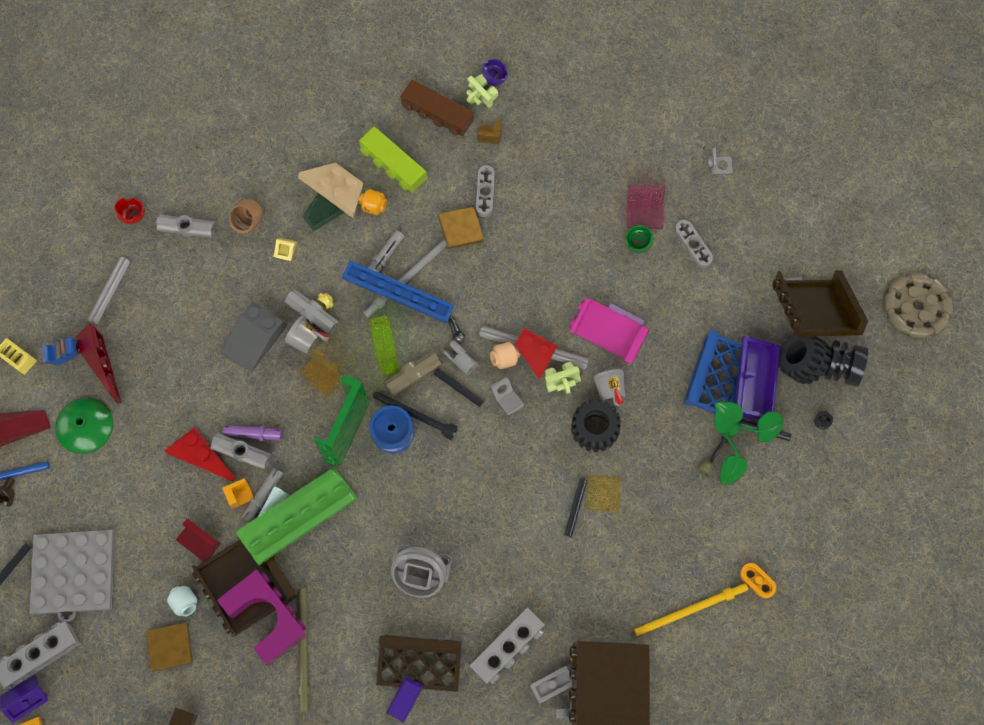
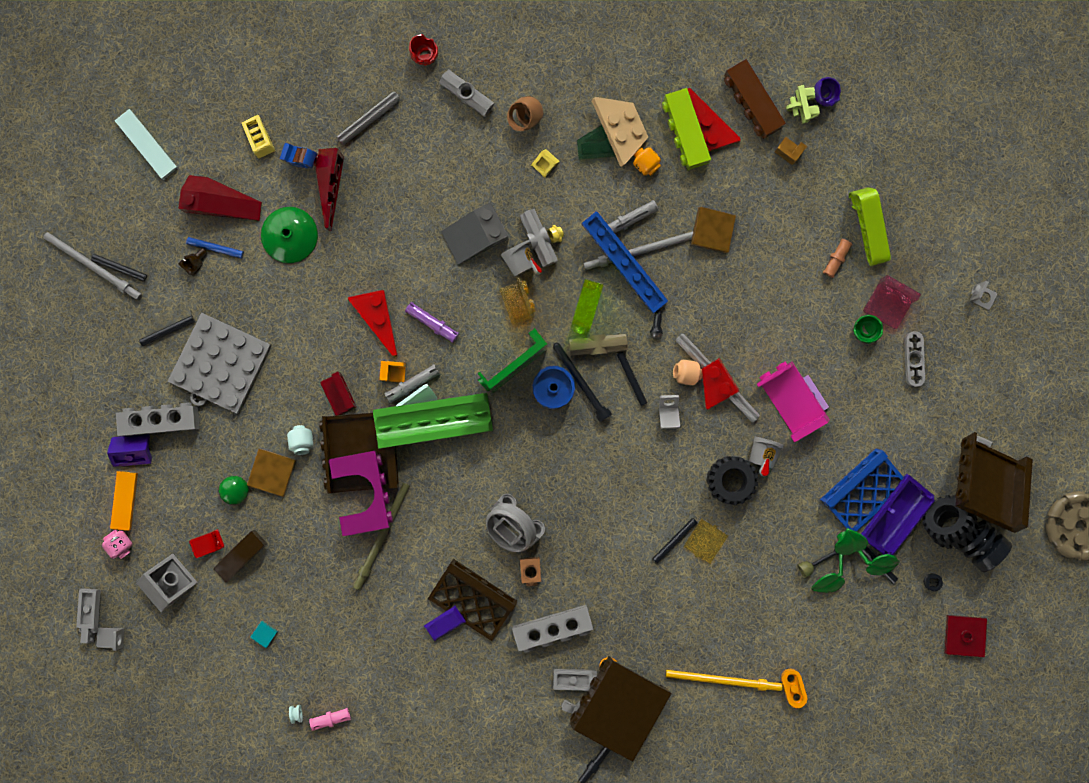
camera: 25 degrees right, 15 degrees up
(140, 682) = (233, 490): none -> green hair
(230, 447) = (405, 325): light grey piece -> none
(418, 149) = (714, 129): none -> red wing
(452, 598) = (530, 562): none -> medium nougat brick
(462, 359) = (649, 356): light grey hinge -> none
(490, 184) = (757, 191): light grey beam -> none
(563, 379) = (726, 423): yellowish green hips -> none
(580, 196) = (837, 258): none -> nougat pin
(593, 155) = (872, 225): none -> lime beam
(880, 451) = (965, 636): none -> dark red plate

